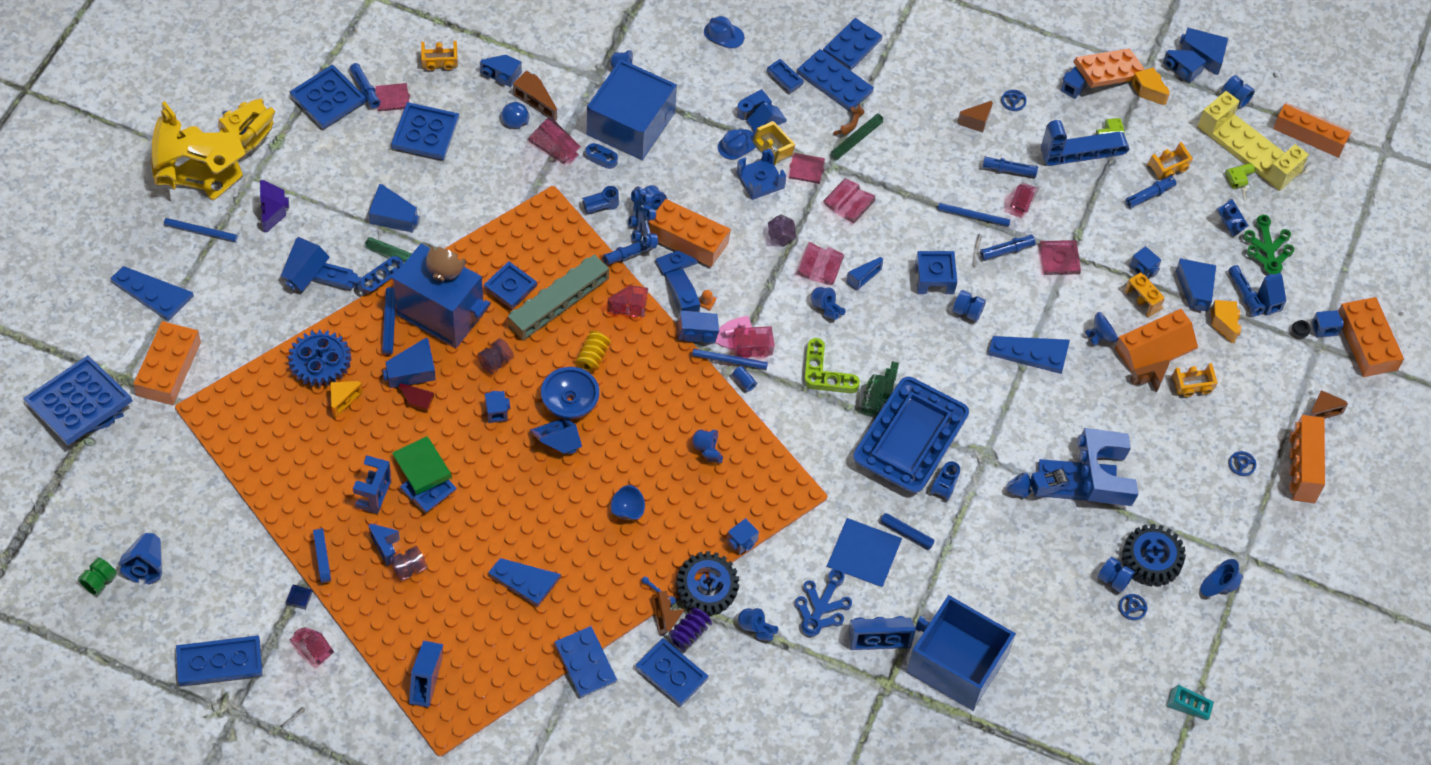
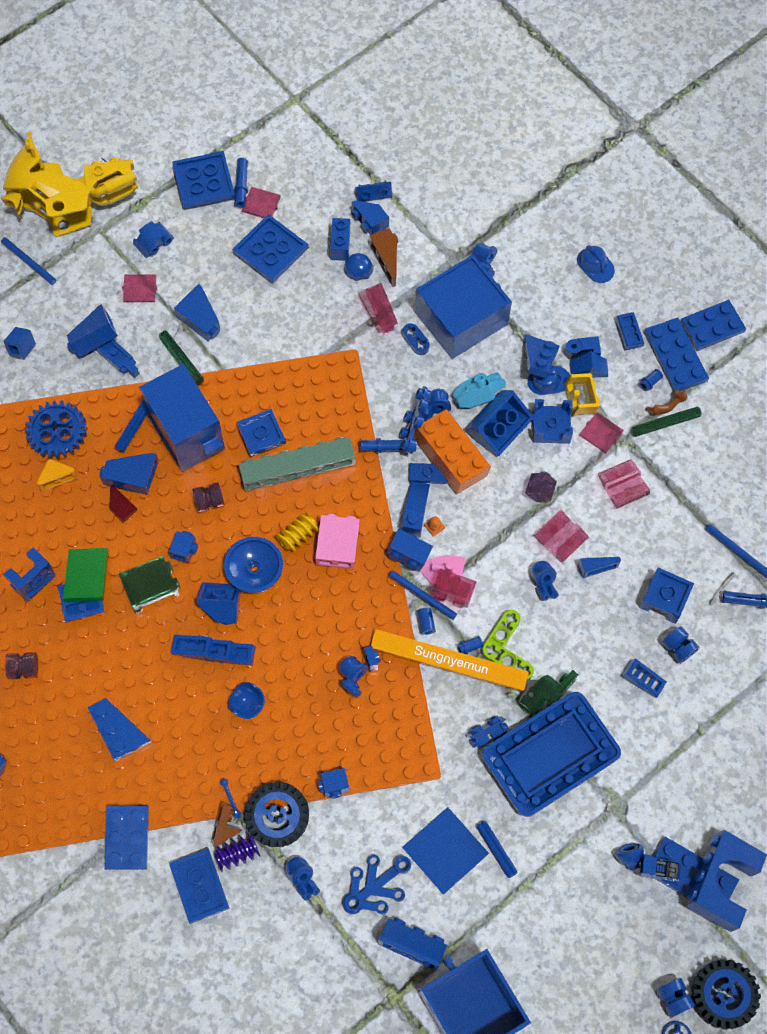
camera: 30 degrees right, 10 degrees up
(238, 300) = (19, 342): none -> blue brick
(272, 204) = (97, 264): dark purple slope -> none
(309, 165) = (151, 238): none -> blue cylinder
(321, 212) = (139, 288): none -> clear pink piece
(376, 281) = (166, 363): blue beam -> none
(383, 540) = (12, 630): blue slope -> none
(439, 57) = (321, 181): light orange window -> none
(444, 264) = (186, 396): medium nougat cylinder -> none
(483, 448) = (149, 583): none -> clear green panel
(486, 98) = (340, 239): none -> blue brick
(492, 47) = (374, 191): none -> blue hinge
(572, 479) = (213, 650): none -> blue slope
(602, 200) = (388, 383): blue piece -> none
(629, 301) = (359, 496): clear pink slope -> none
(632, 345) = (337, 541): none -> bright pink panel
(683, 173) = (478, 390): none -> medium azure hinge
(716, 192) = (500, 422): none -> blue slope
(716, 423) = (372, 658): none -> blue plate
(721, 124) = (540, 355): none -> blue wing
(782, 399) = (449, 660): none -> light orange tile
(789, 386) = (470, 645): none -> blue pin
(824, 111) = (648, 382): none -> blue pin
(850, 436) = (480, 733): none -> blue hinge
(941, 347) = (640, 683): none -> blue slope
(945, 483) = (557, 818): blue piece -> none
(1034, 352) = (723, 722): blue wing -> none

